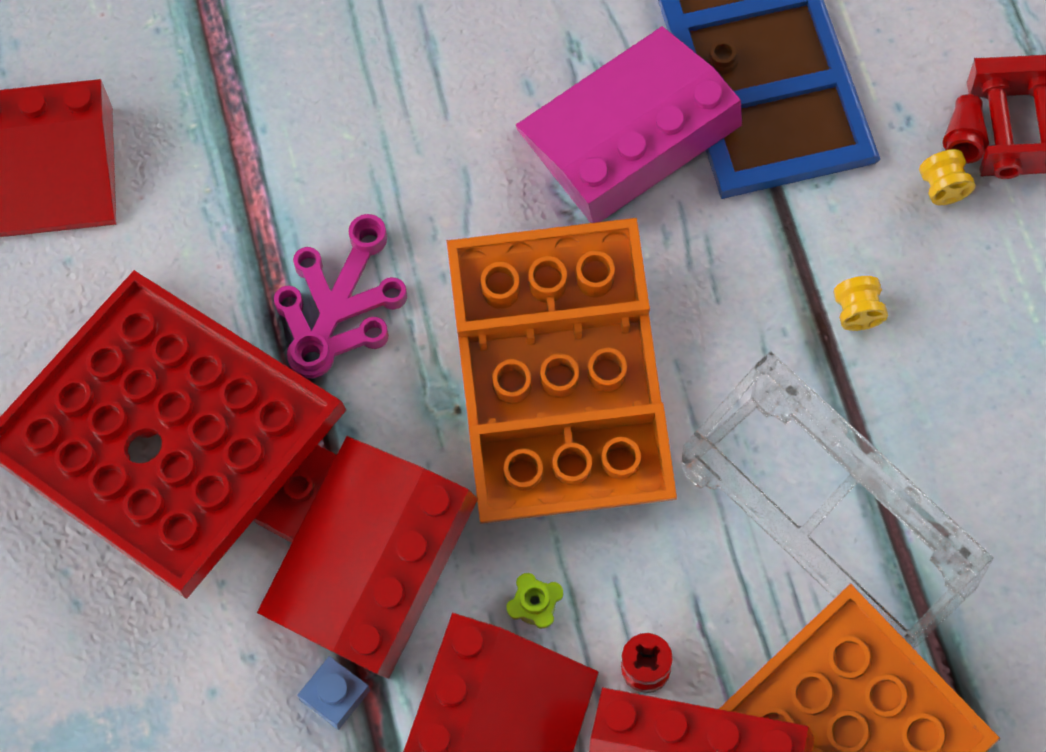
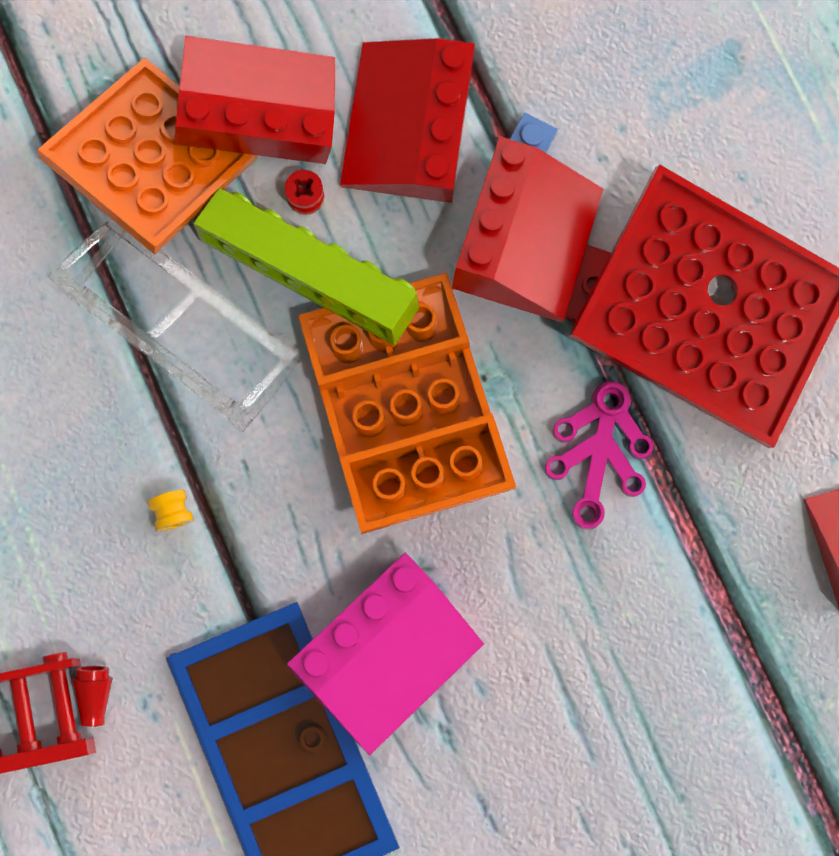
camera: 165 degrees right, 15 degrees up
(538, 614) = (399, 237): lime plate -> none
(658, 550) = (308, 265): none -> lime brick
(947, 177) = (106, 641): yellow wheel -> none

